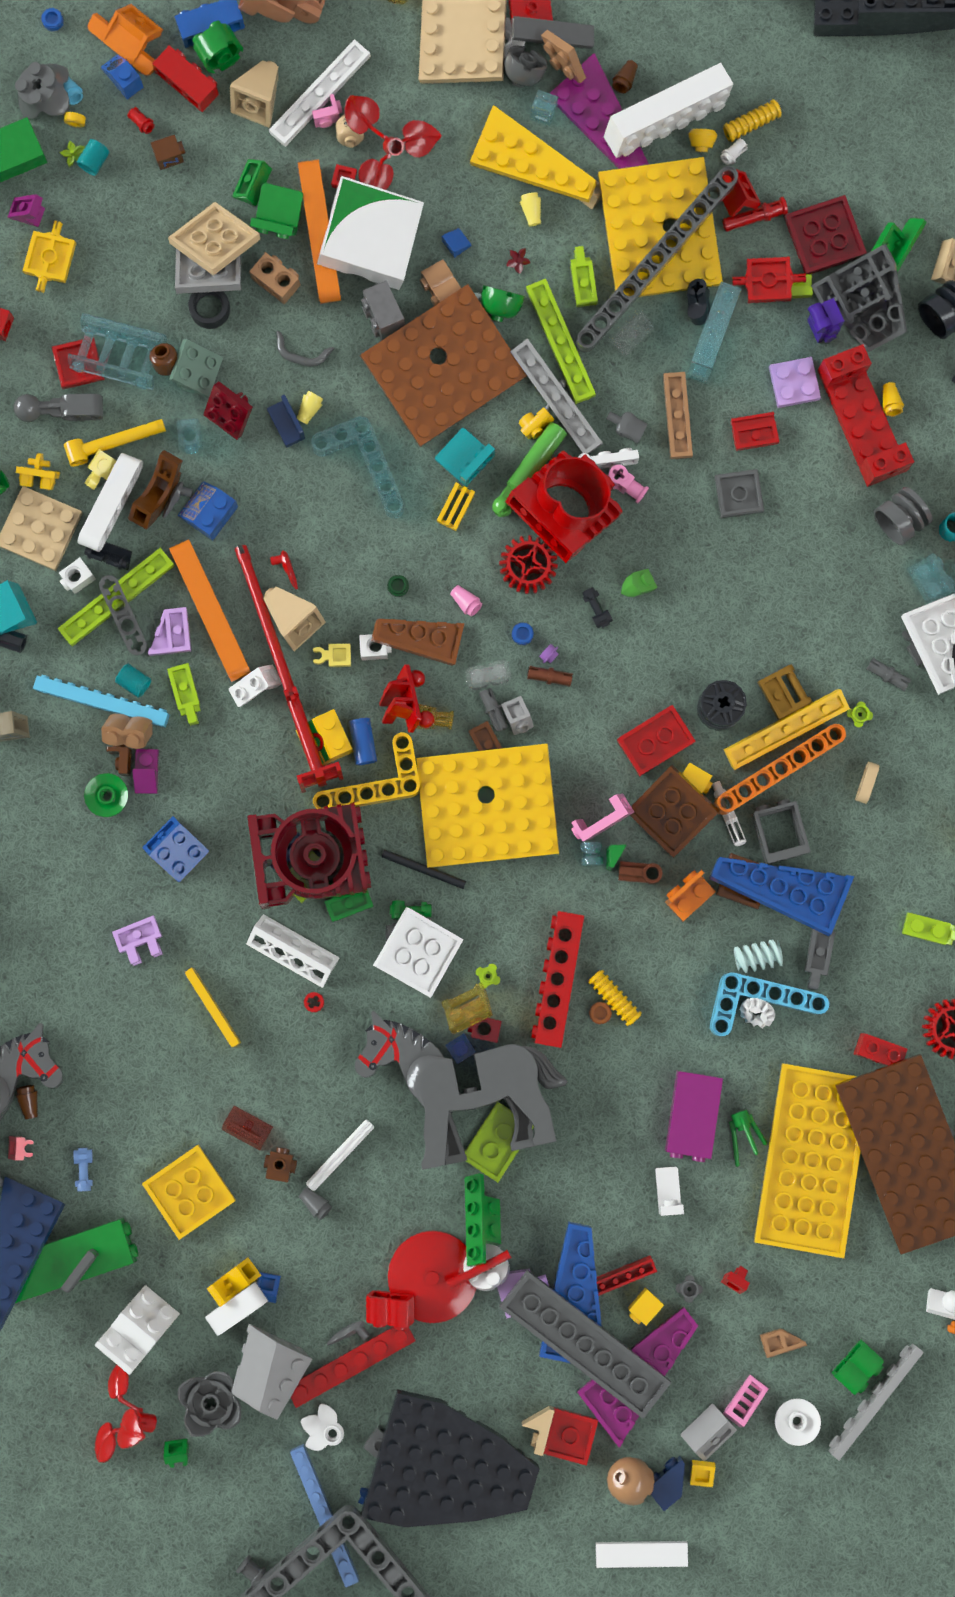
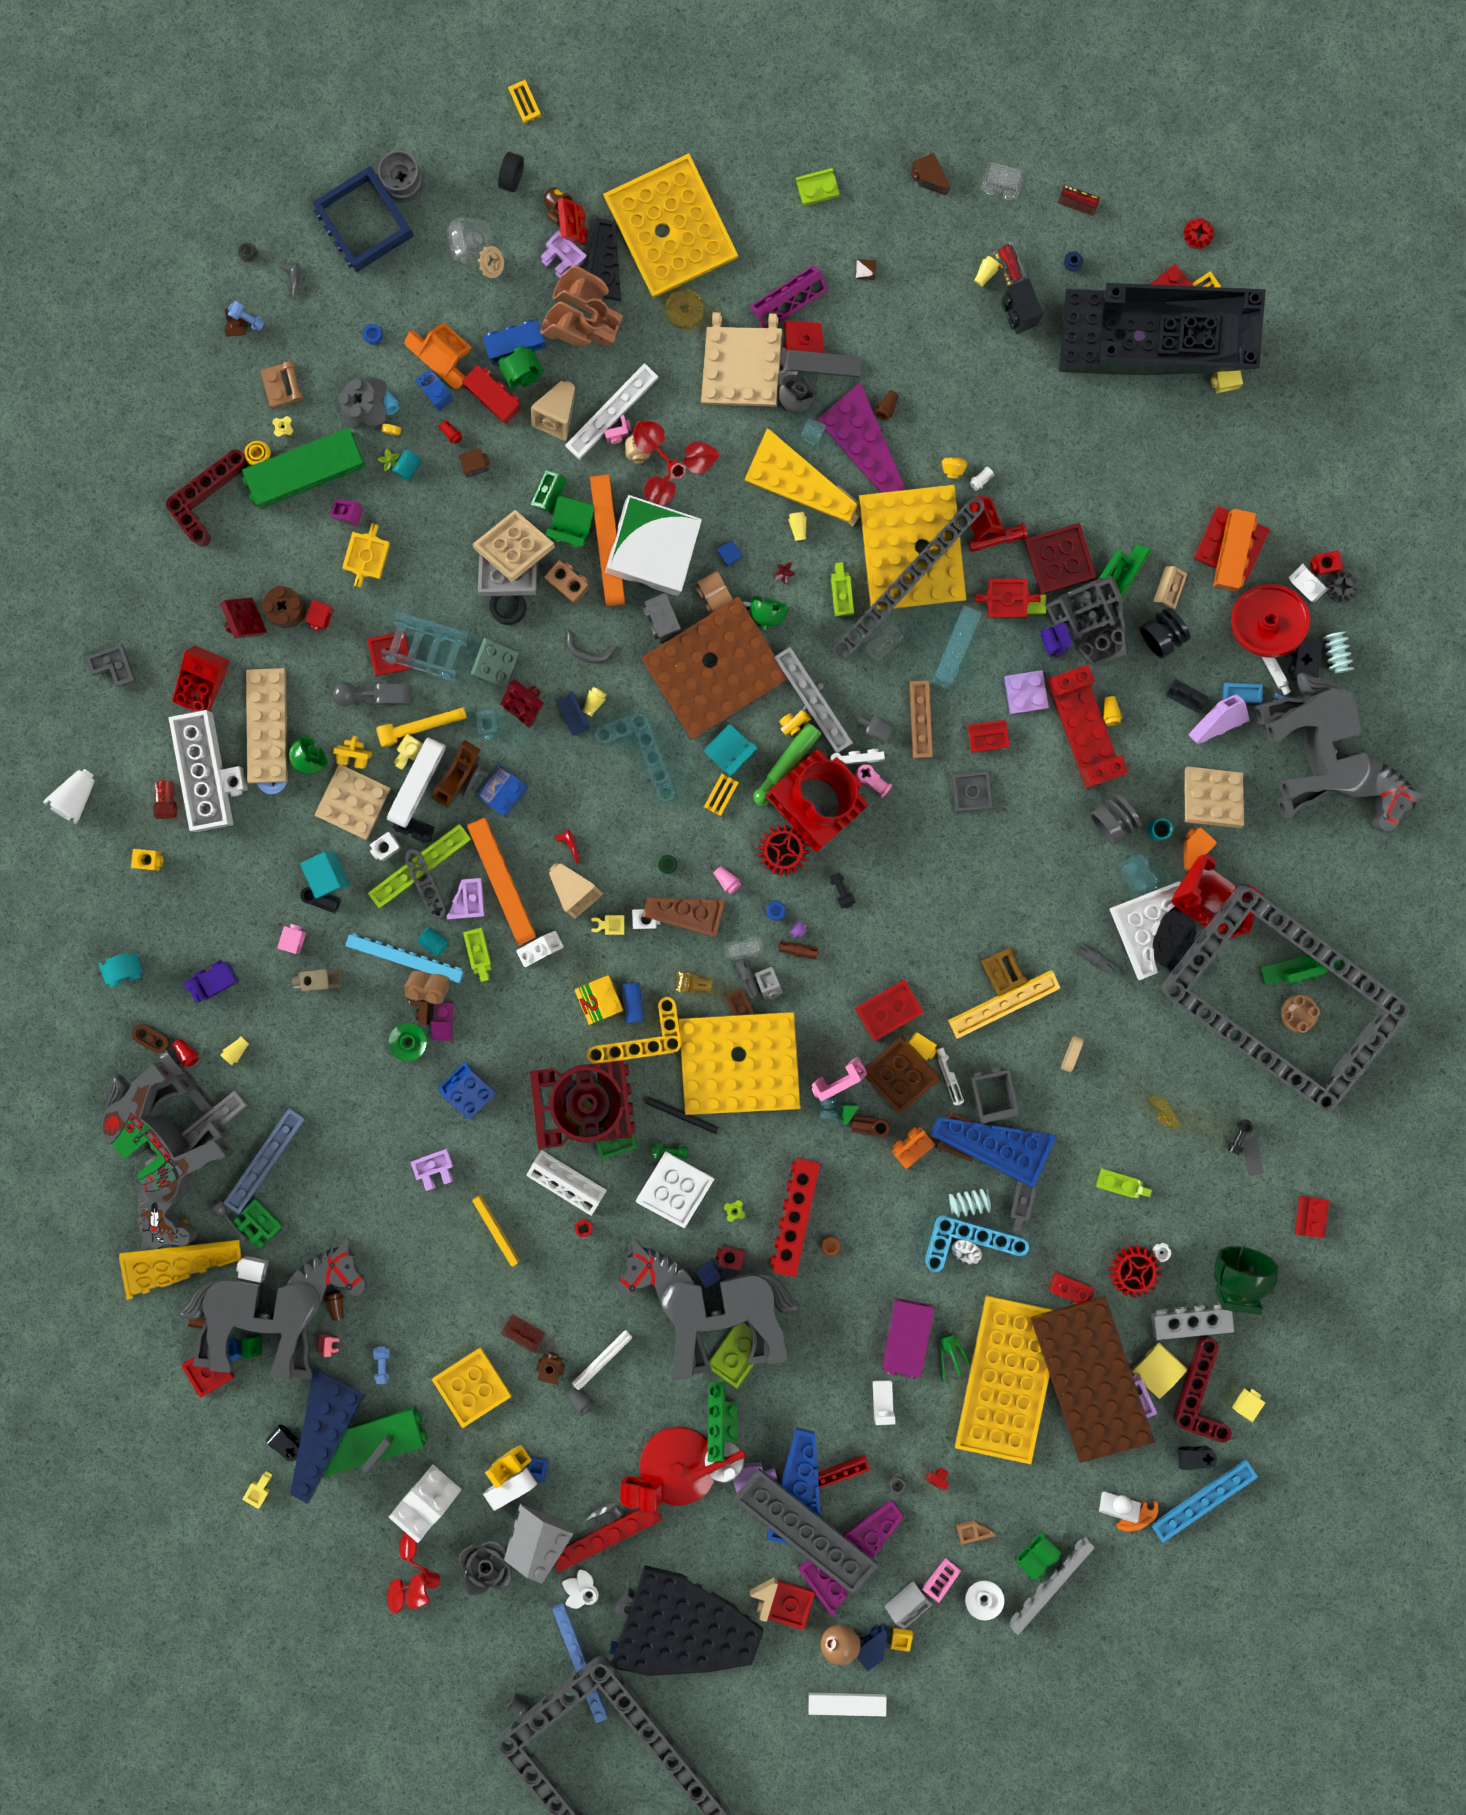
camera: 10 degrees right, 5 degrees up
(163, 358) = (466, 654): reddish brown head -> none
(176, 1452) = (456, 1605): green tile -> none
(318, 773) = (571, 960): red piece -> none
(342, 171) = (631, 489): red tile -> none
(403, 702) = (672, 975): red piece -> none
(469, 1013) = (717, 1244): clear yellow plate -> none
(560, 341) = (819, 648): lime plate -> none
(563, 56) = (831, 388): medium nougat plate -> none
(614, 997) = (843, 1233): yellow piece -> none
(638, 584) = (879, 870): bright green plate -> none
(644, 1307) = (858, 1499): yellow brick -> none
(668, 111) = (924, 442): white brick -> none
(698, 311) = (943, 617): black piece -> none
(709, 702) = (936, 984): black wheel -> none
(752, 120) = (1000, 449): yellow piece -> none
(787, 762) = (1004, 1036): orange beam -> none
(860, 708) = (1068, 998): lime plate -> none

